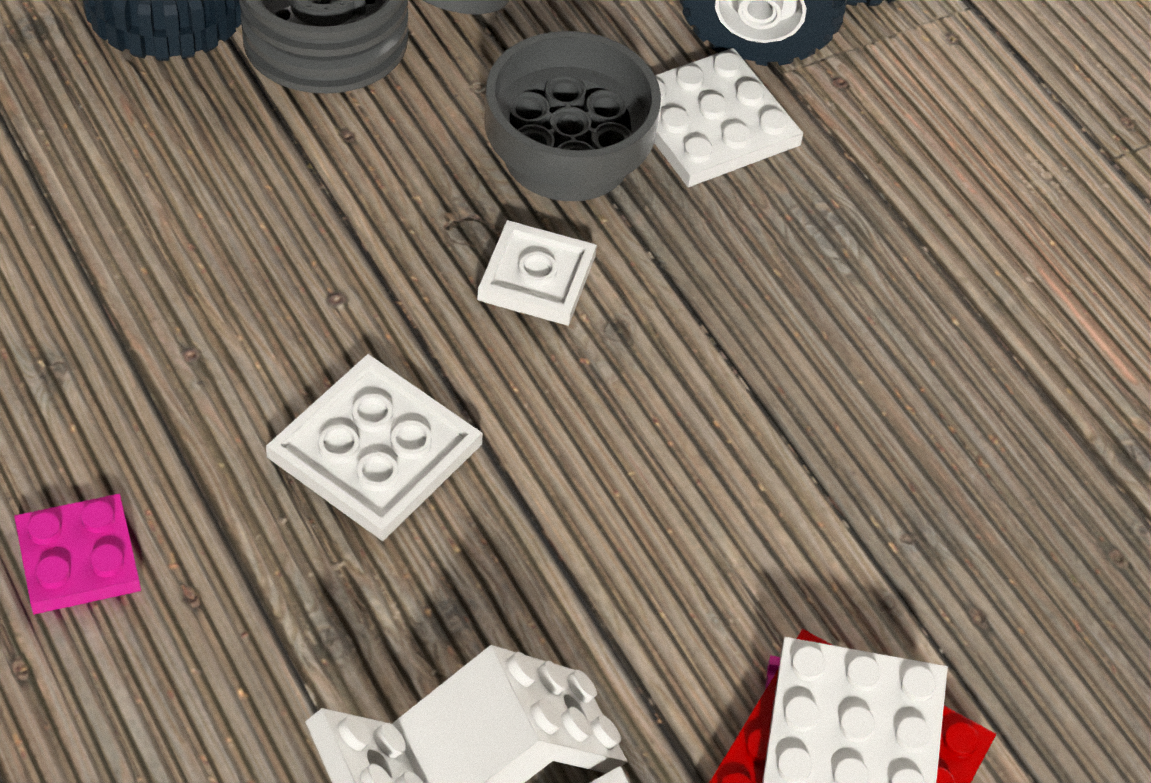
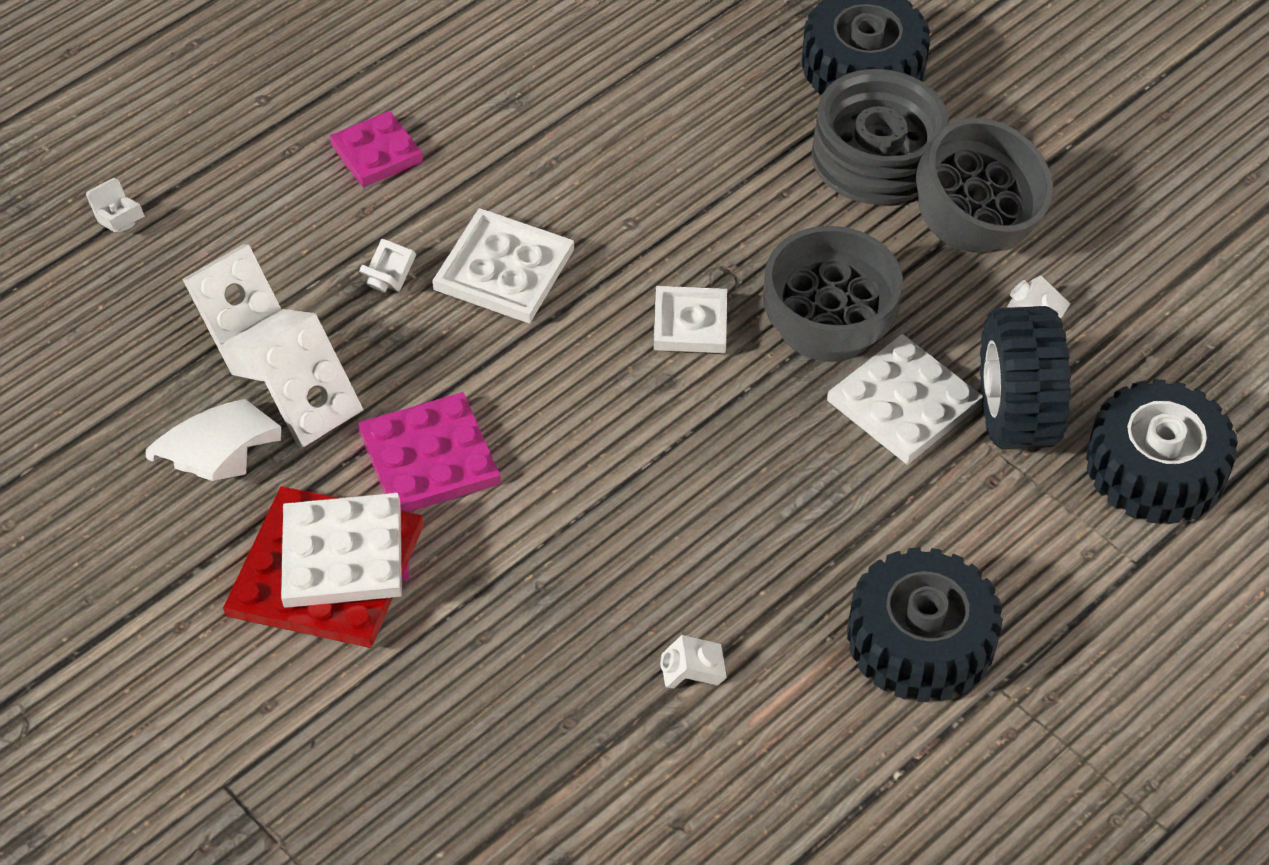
camera: 80 degrees right, 0 degrees up
(332, 581) = (388, 266): none -> white bracket
(674, 611) = (429, 452): none -> dark pink plate
(1054, 179) = (924, 624): none -> black wheel
(1061, 406) = (693, 660): none -> white bracket

